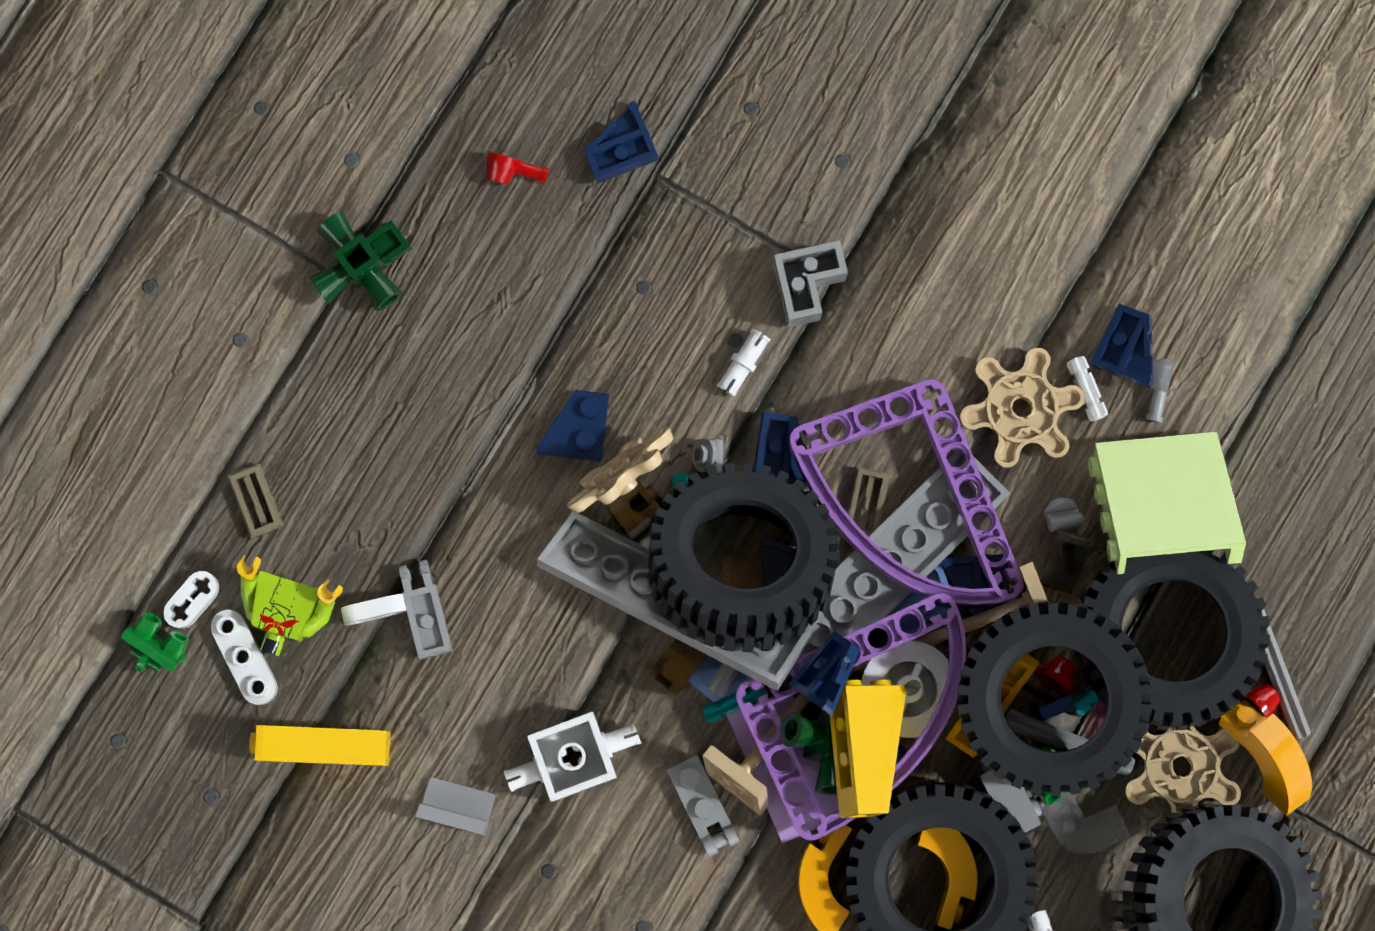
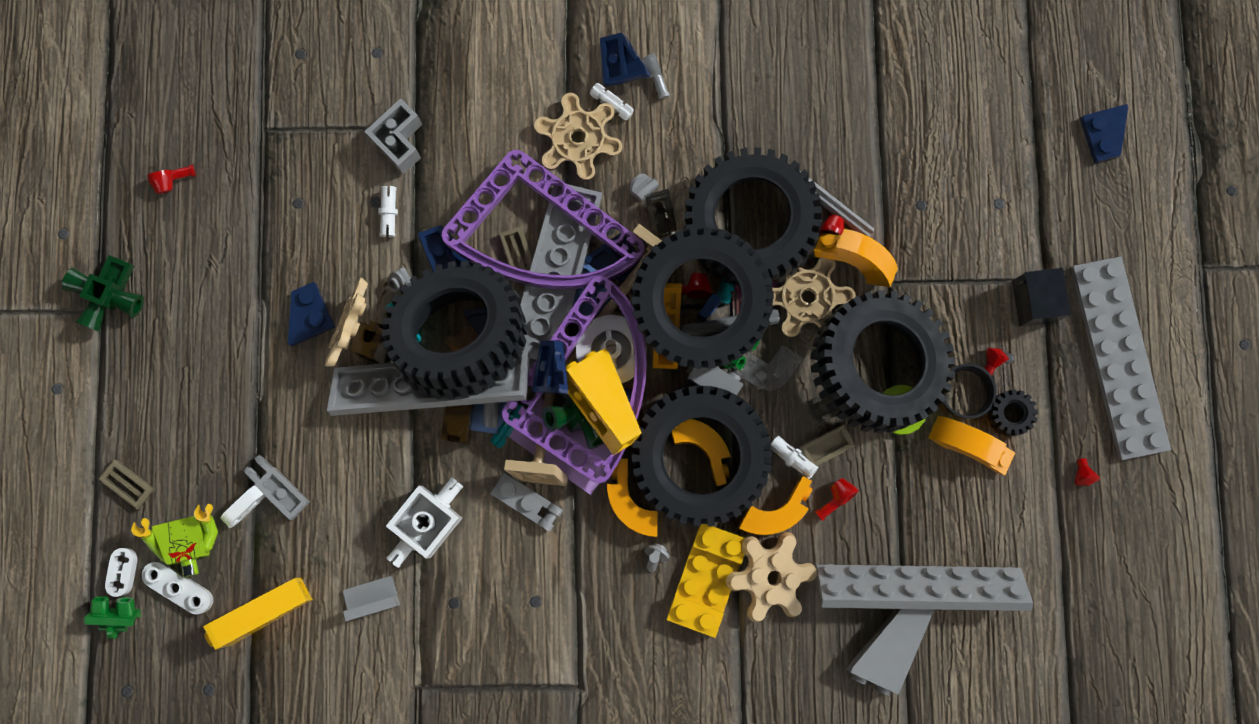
camera: 30 degrees left, 0 degrees up
(621, 147) = (231, 124): dark blue wing -> none
(1166, 497) = (698, 136): yellowish green panel -> none

